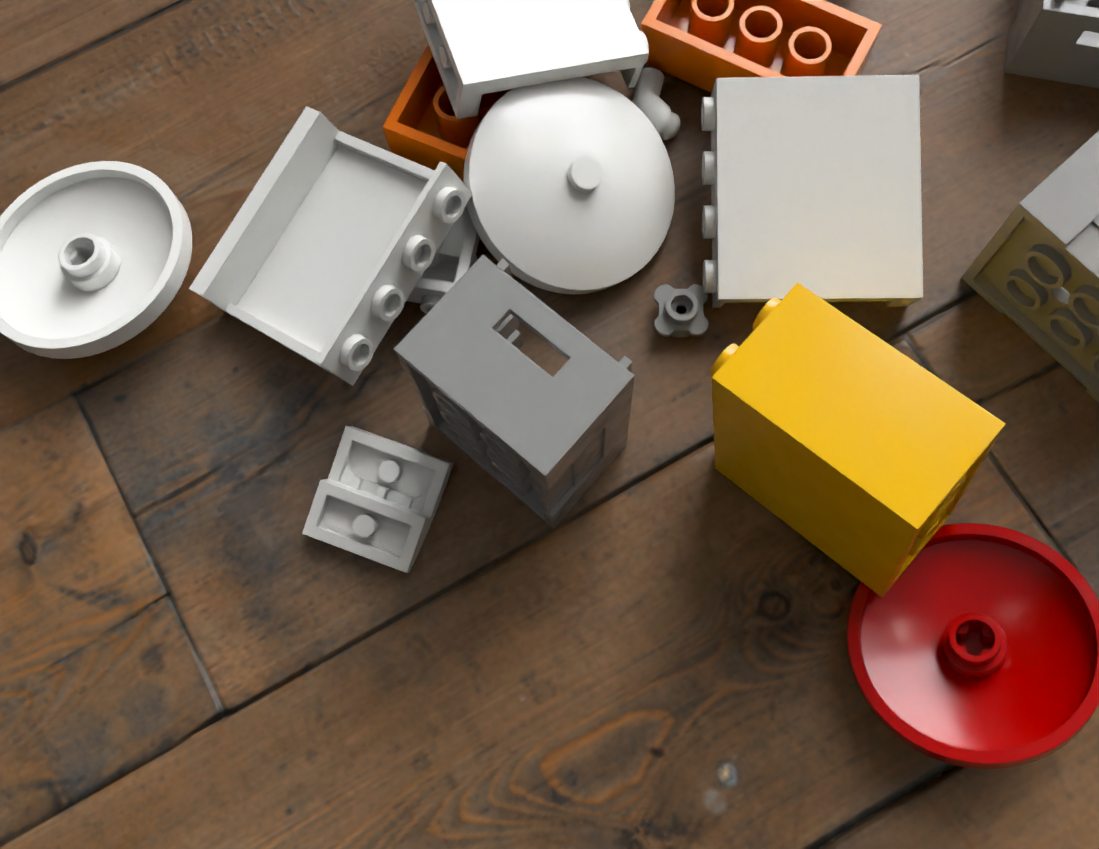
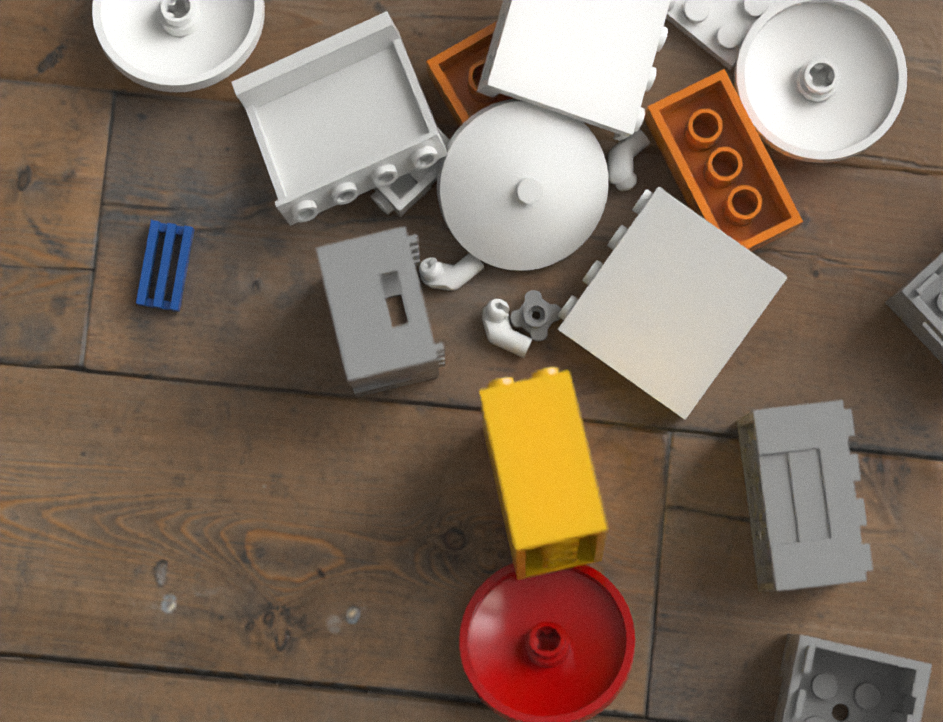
camera: 25 degrees right, 10 degrees up
(228, 492) = (148, 265): none -> blue tile
(378, 499) = (261, 302): white slope -> none
(573, 310) = (449, 276): none -> white arm
(653, 351) = (500, 331): none -> white arm

